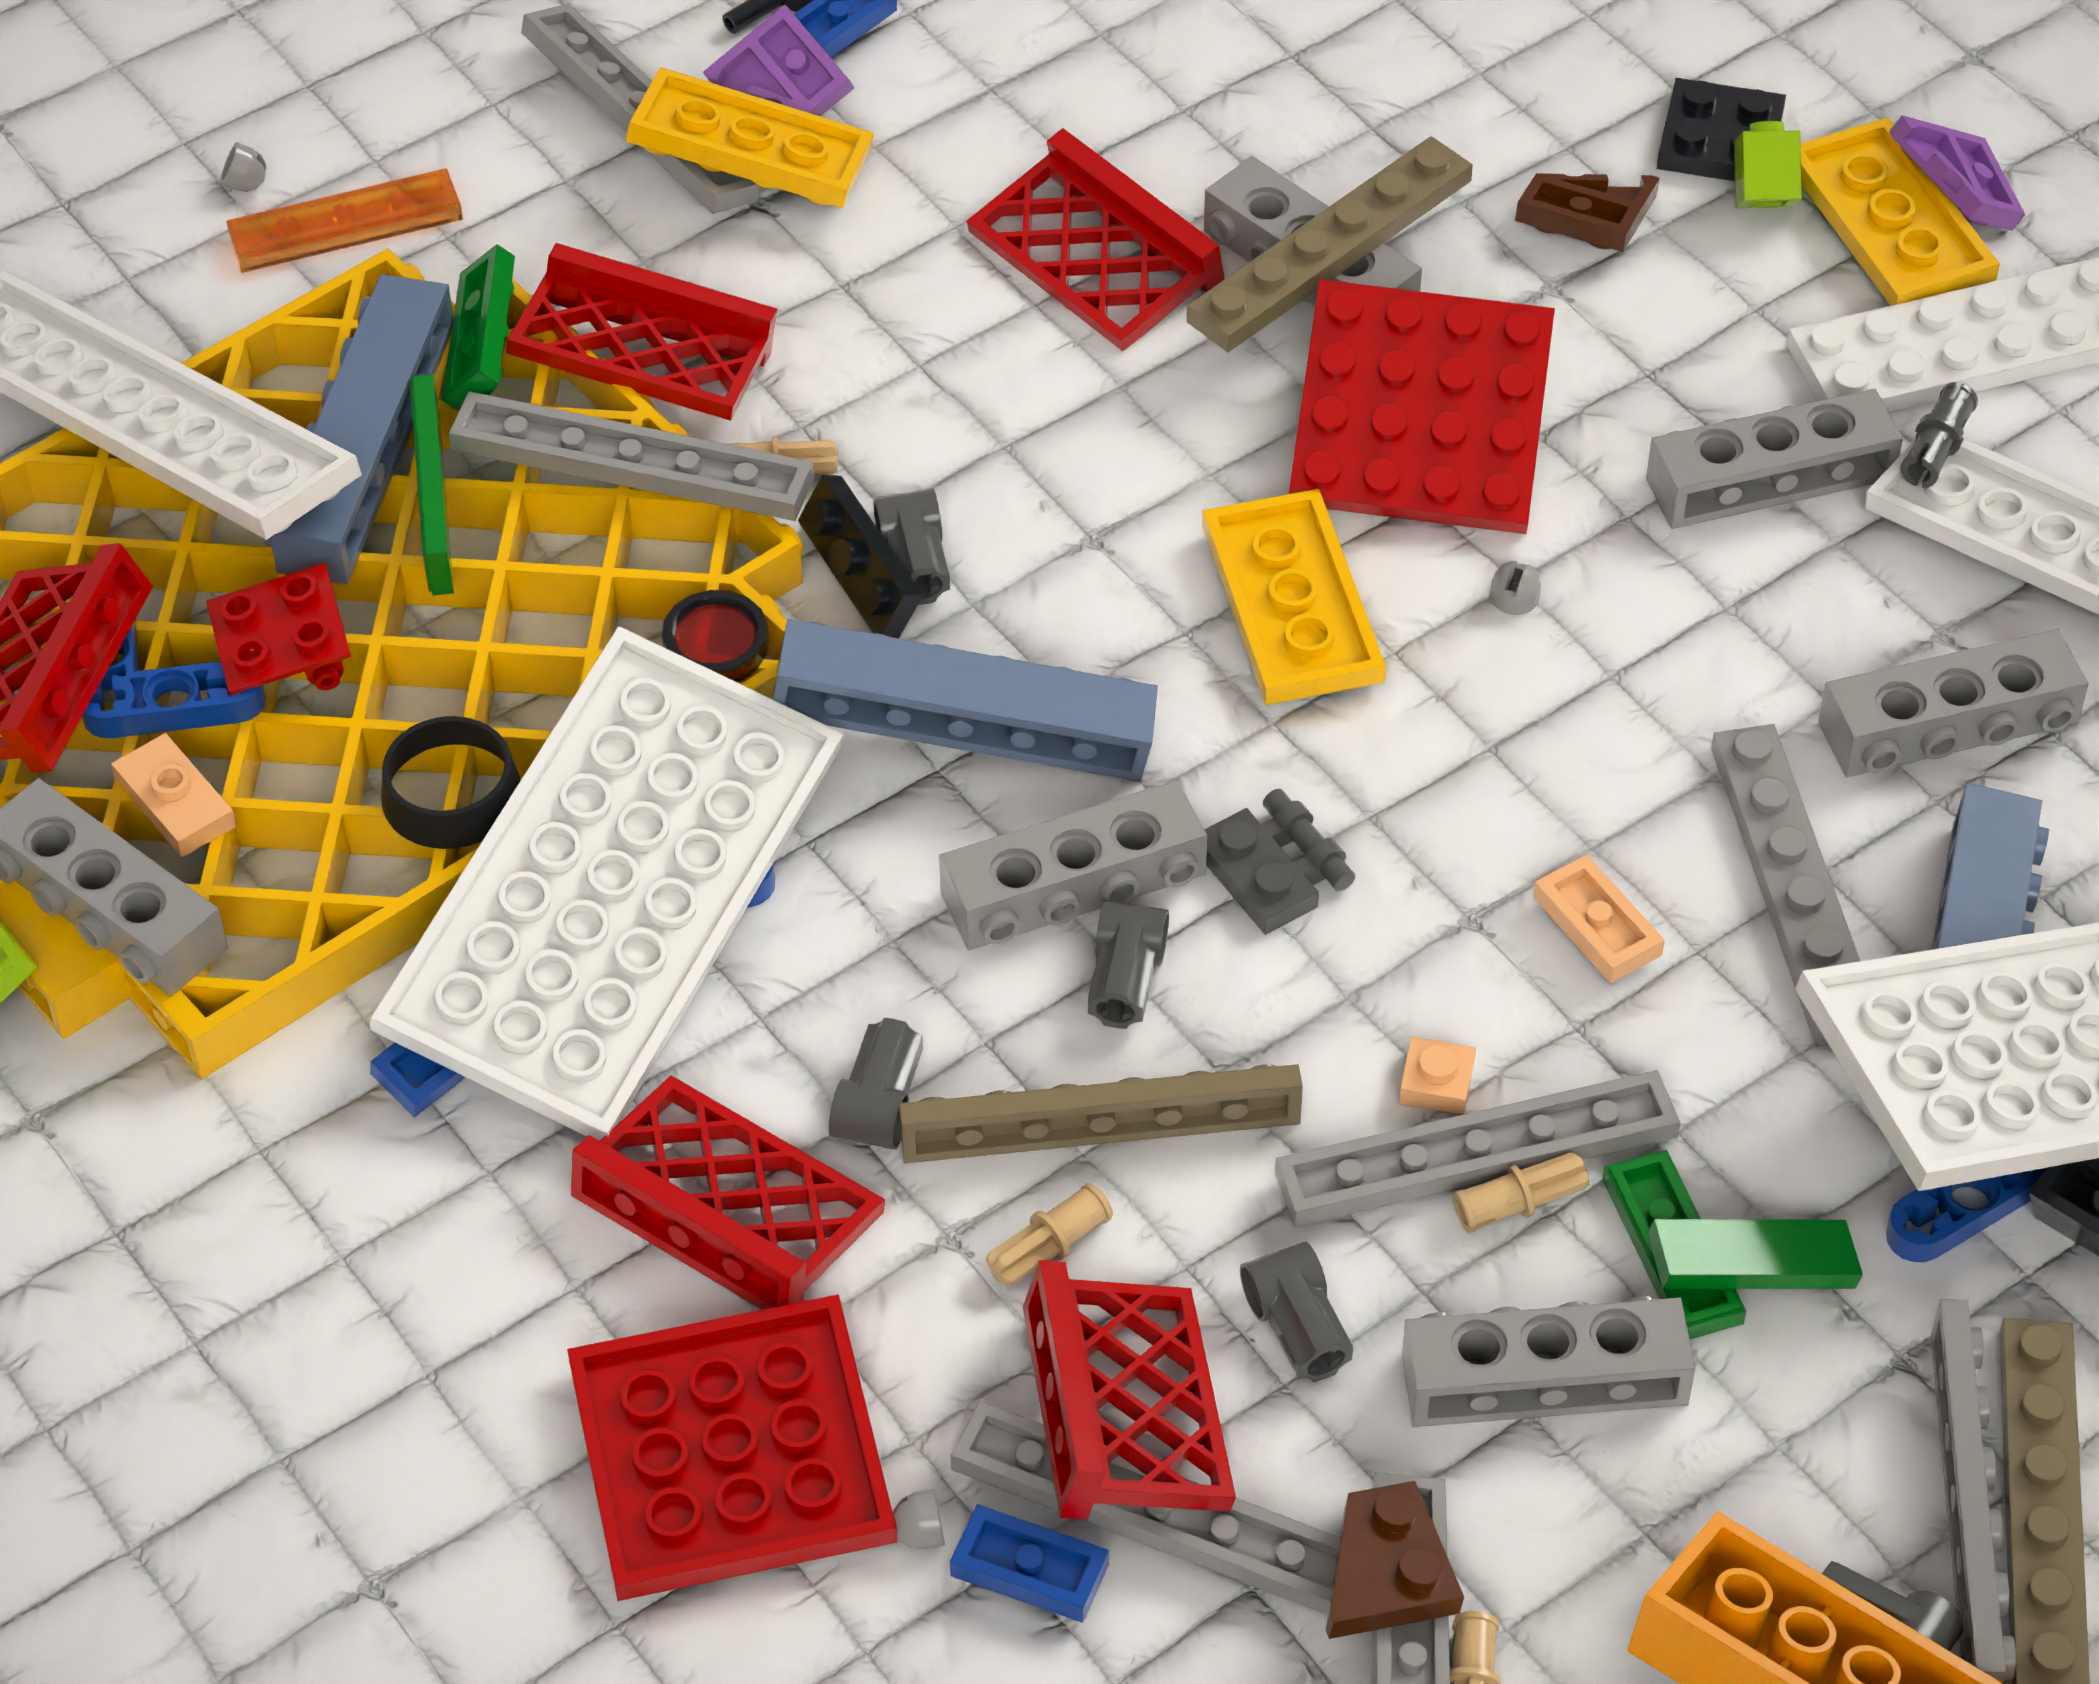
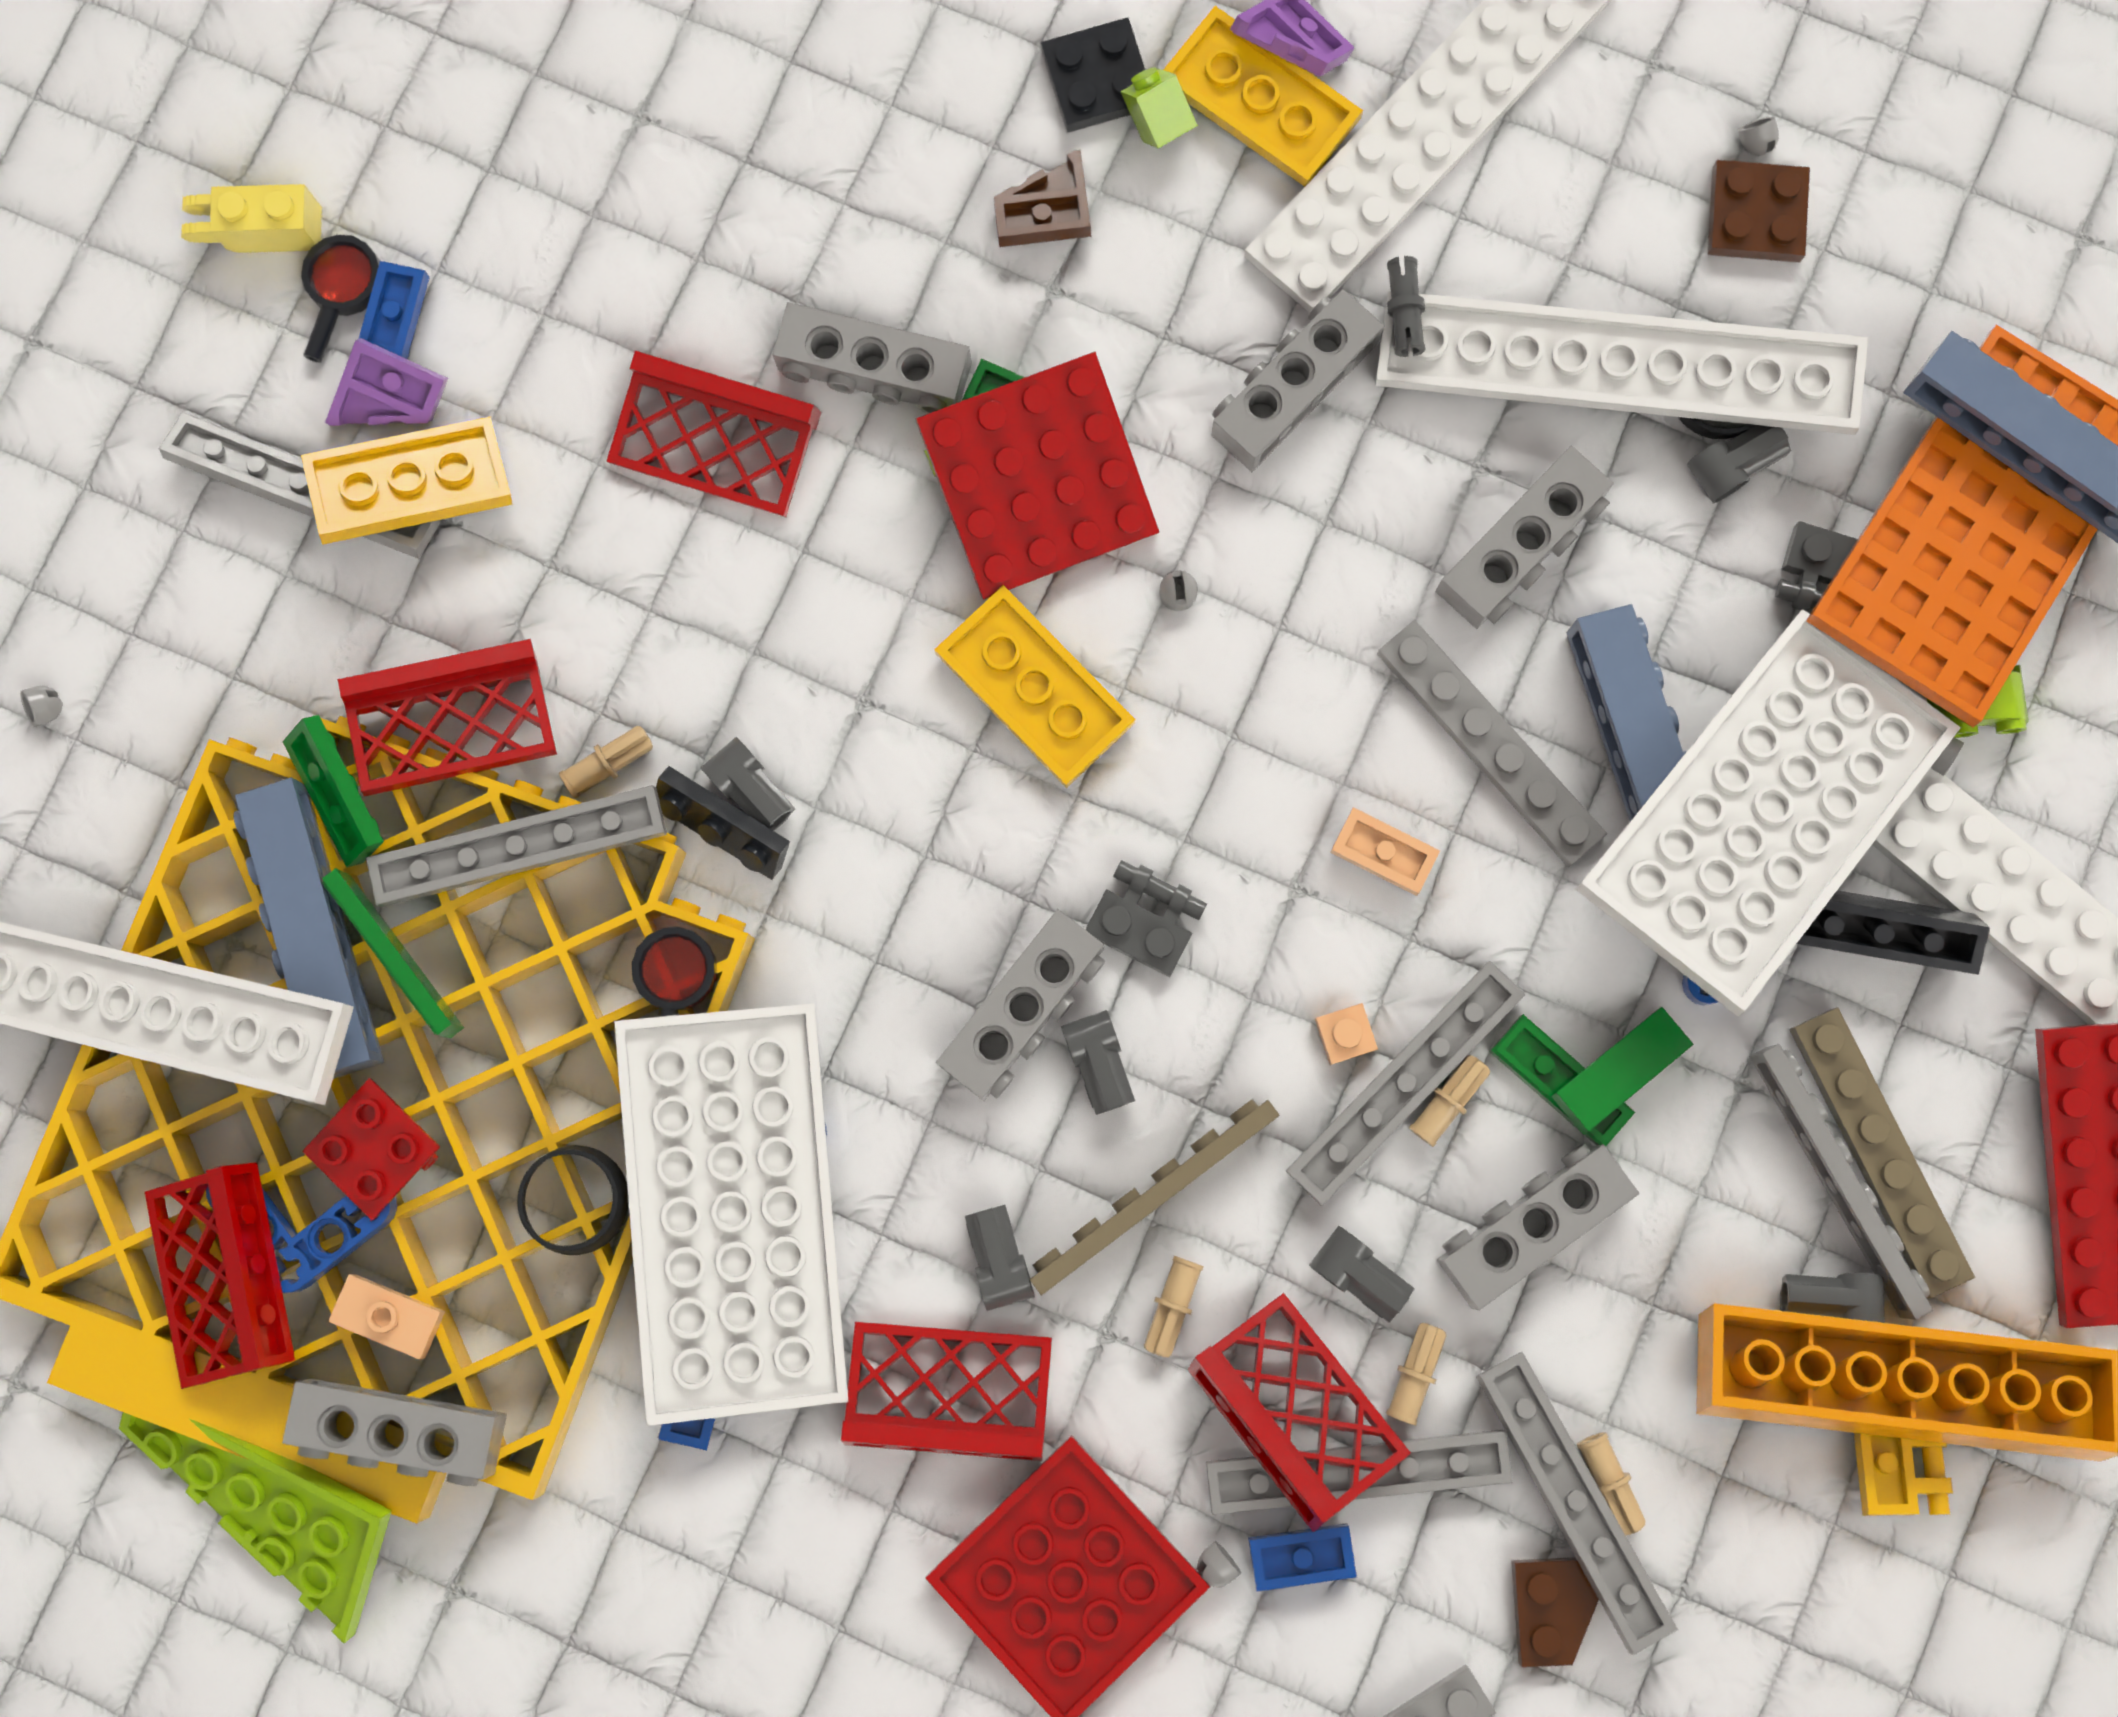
camera: 25 degrees left, 30 degrees up
(344, 220) = (147, 708): clear orange tile -> none
(966, 700) = (873, 921): sand blue brick -> none
(1297, 1448) = (1417, 1373): none -> tan axle
(1328, 244) = (894, 362): dark tan plate -> none
(1389, 1564) = (1530, 1448): reddish brown wing -> none

